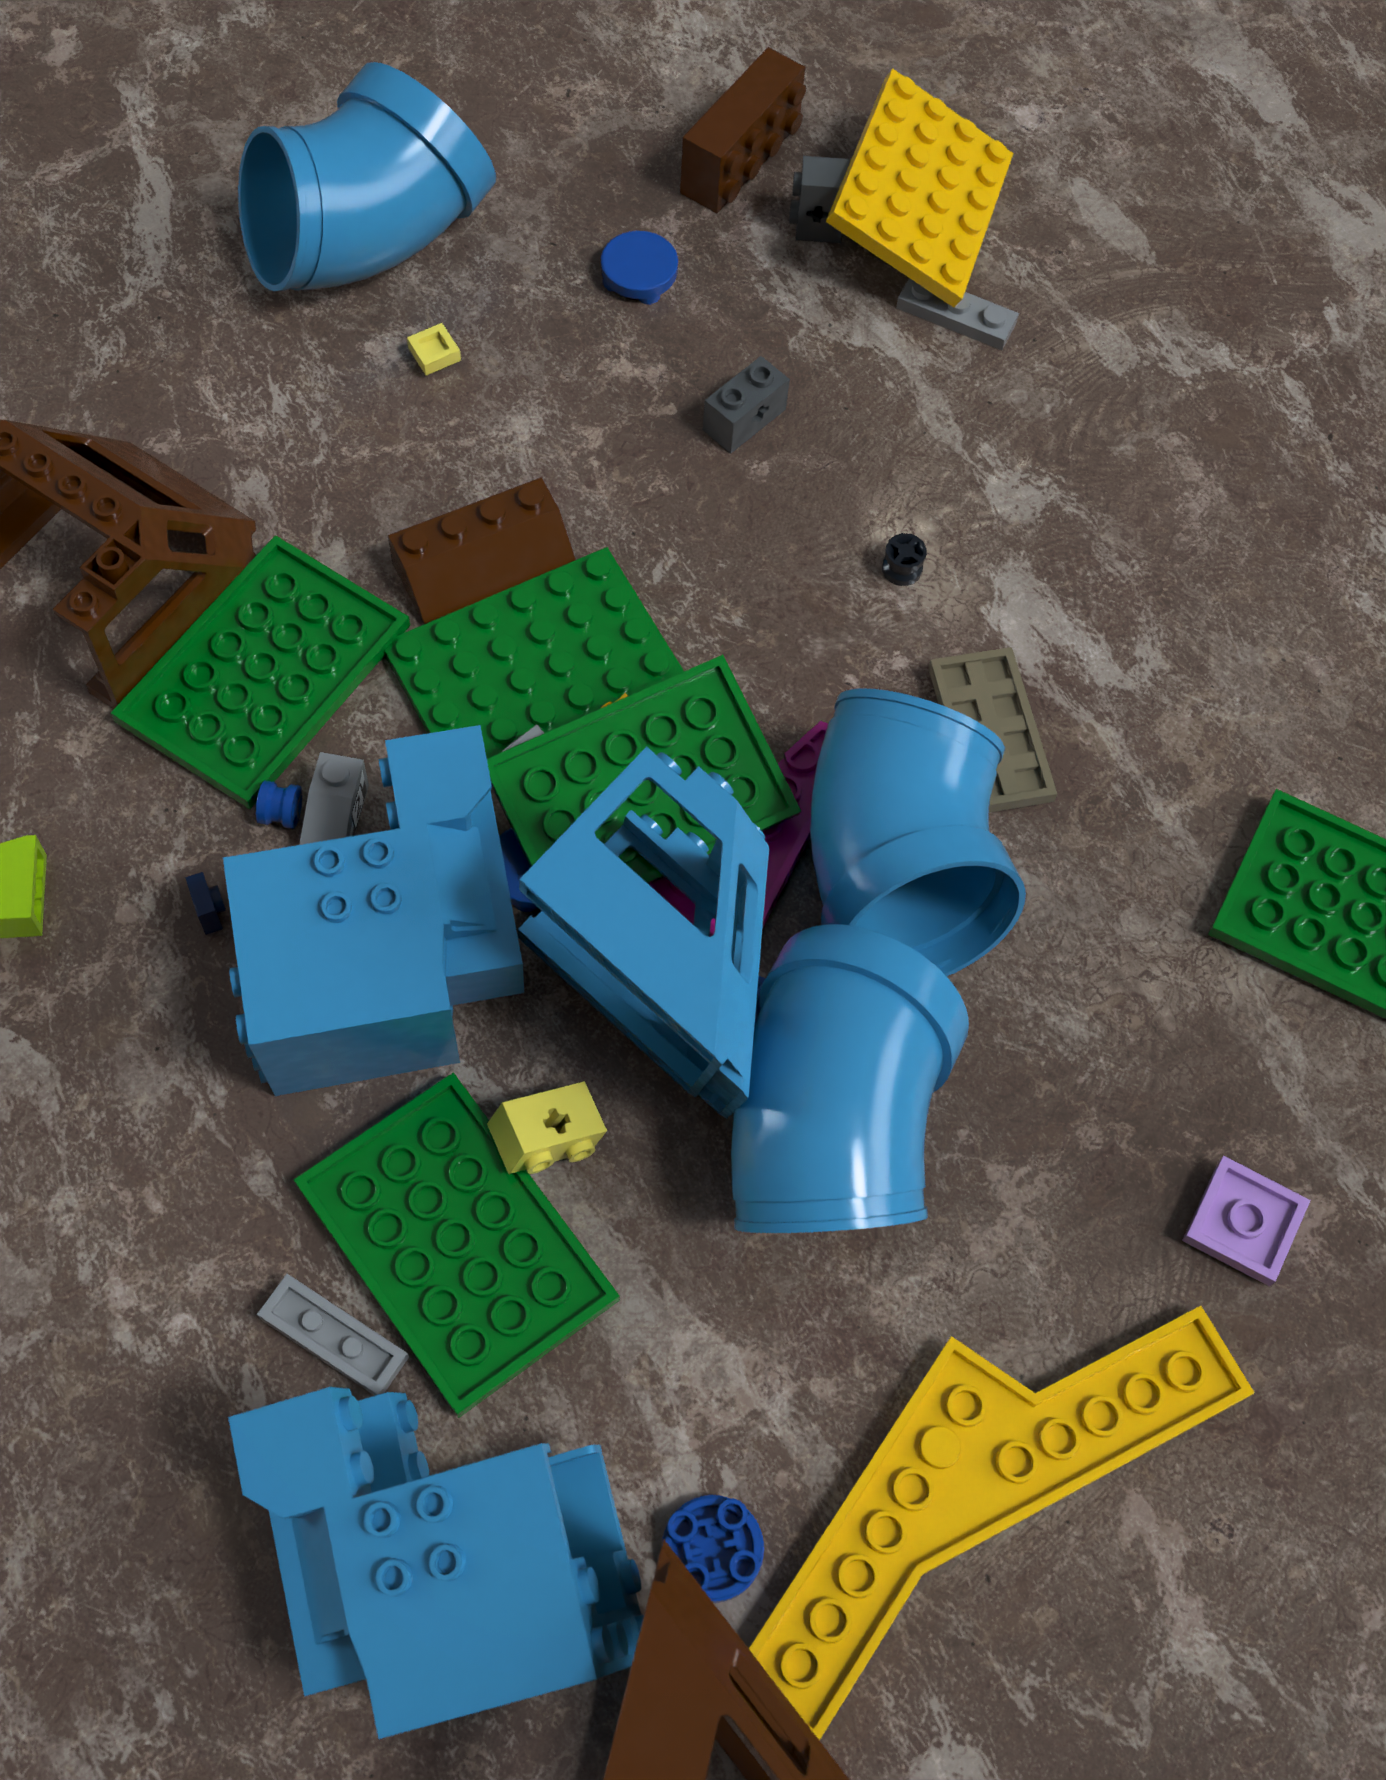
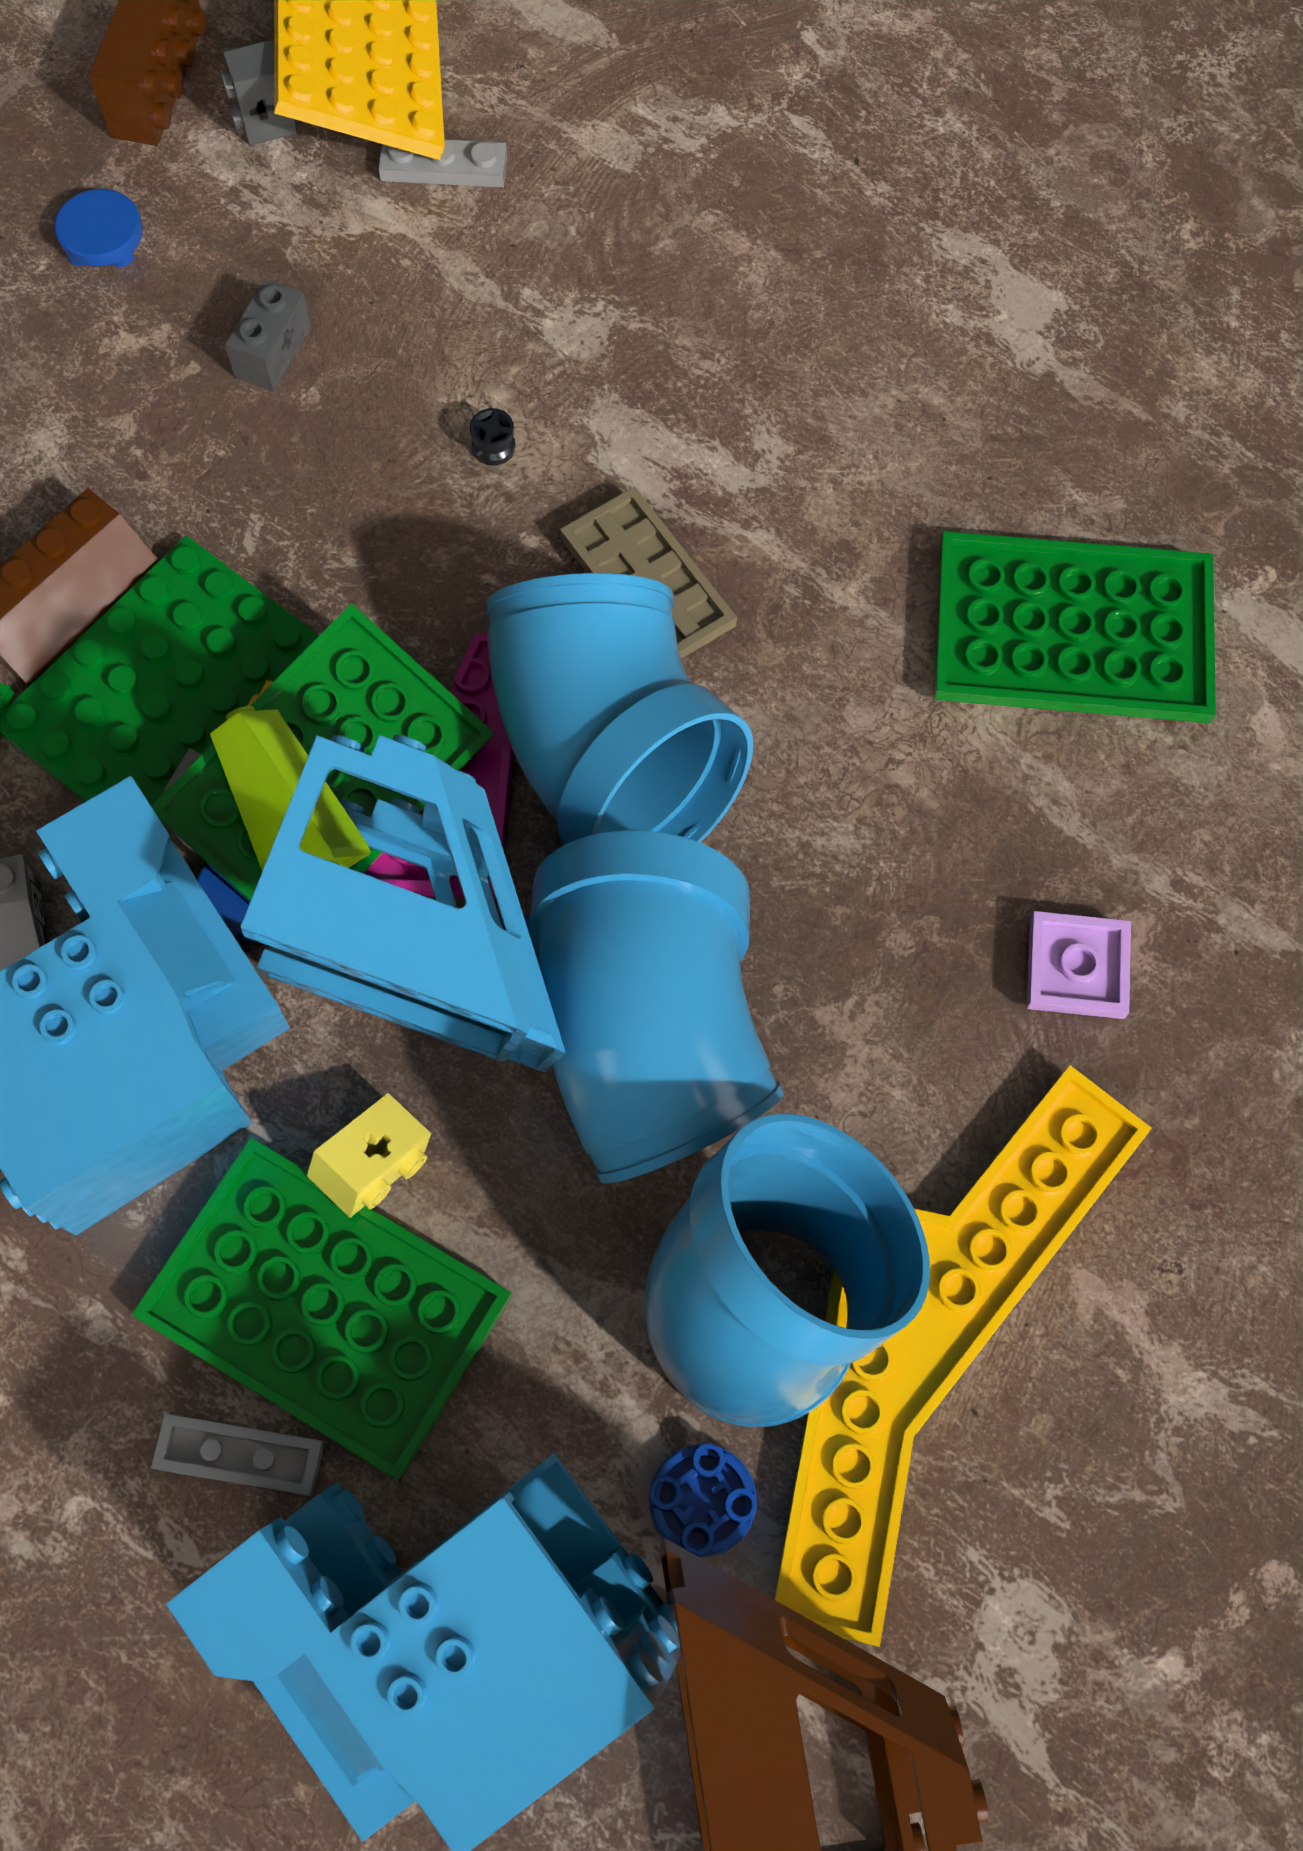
camera: 20 degrees left, 5 degrees up
(590, 757) = (263, 770): none -> lime slope
(792, 1400) = (720, 1321): none -> dark azure cylinder

